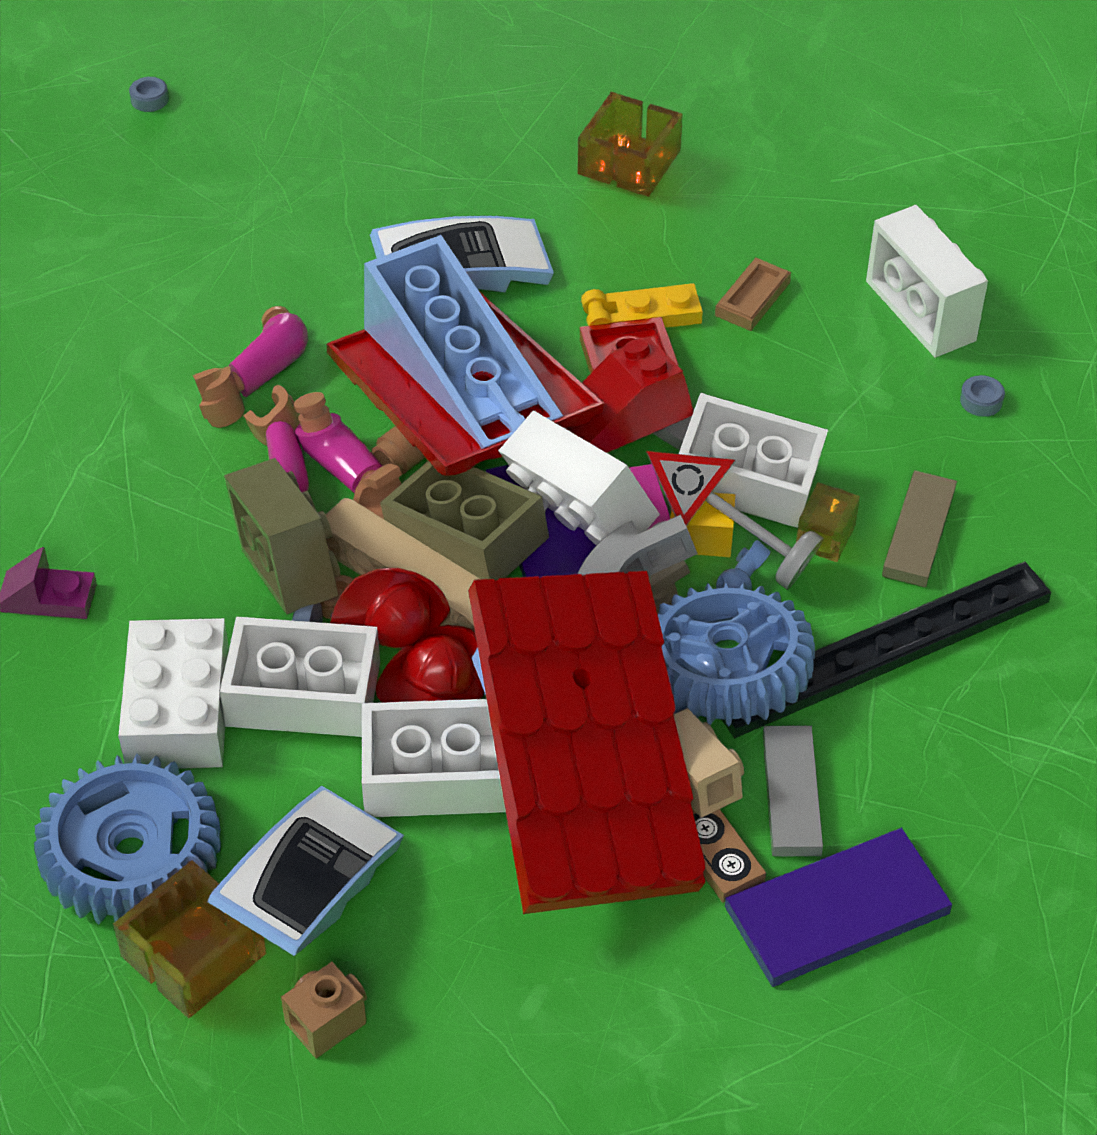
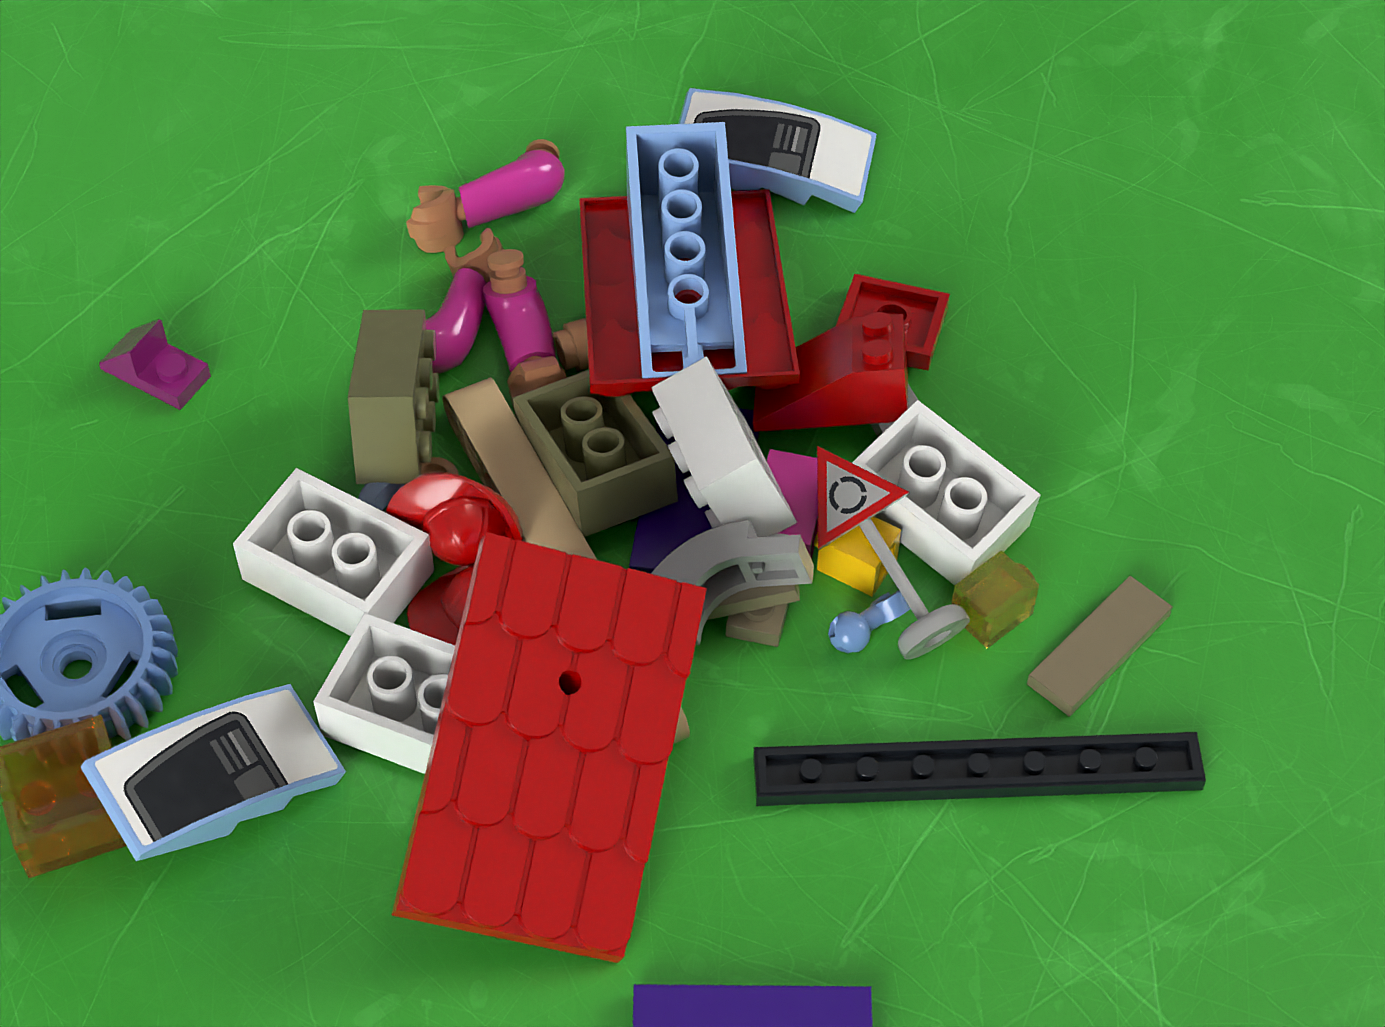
camera: 25 degrees right, 5 degrees up
(174, 692) = (188, 526): white brick -> none
(324, 1008) = (157, 926): medium nougat brick -> none
(614, 146) = (1013, 85): clear orange piece -> none
(675, 304) = (970, 282): yellow plate -> none
(710, 766) = (685, 826): tan brick -> none
(727, 859) = (662, 930): tile -> none
(735, 679) = (783, 740): medium blue gear -> none
(753, 294) = (1071, 302): medium nougat tile -> none
(792, 791) = (779, 893): light grey tile -> none
(926, 280) = (1267, 357): white brick -> none
(982, 395) = (1265, 516): sand blue tile -> none

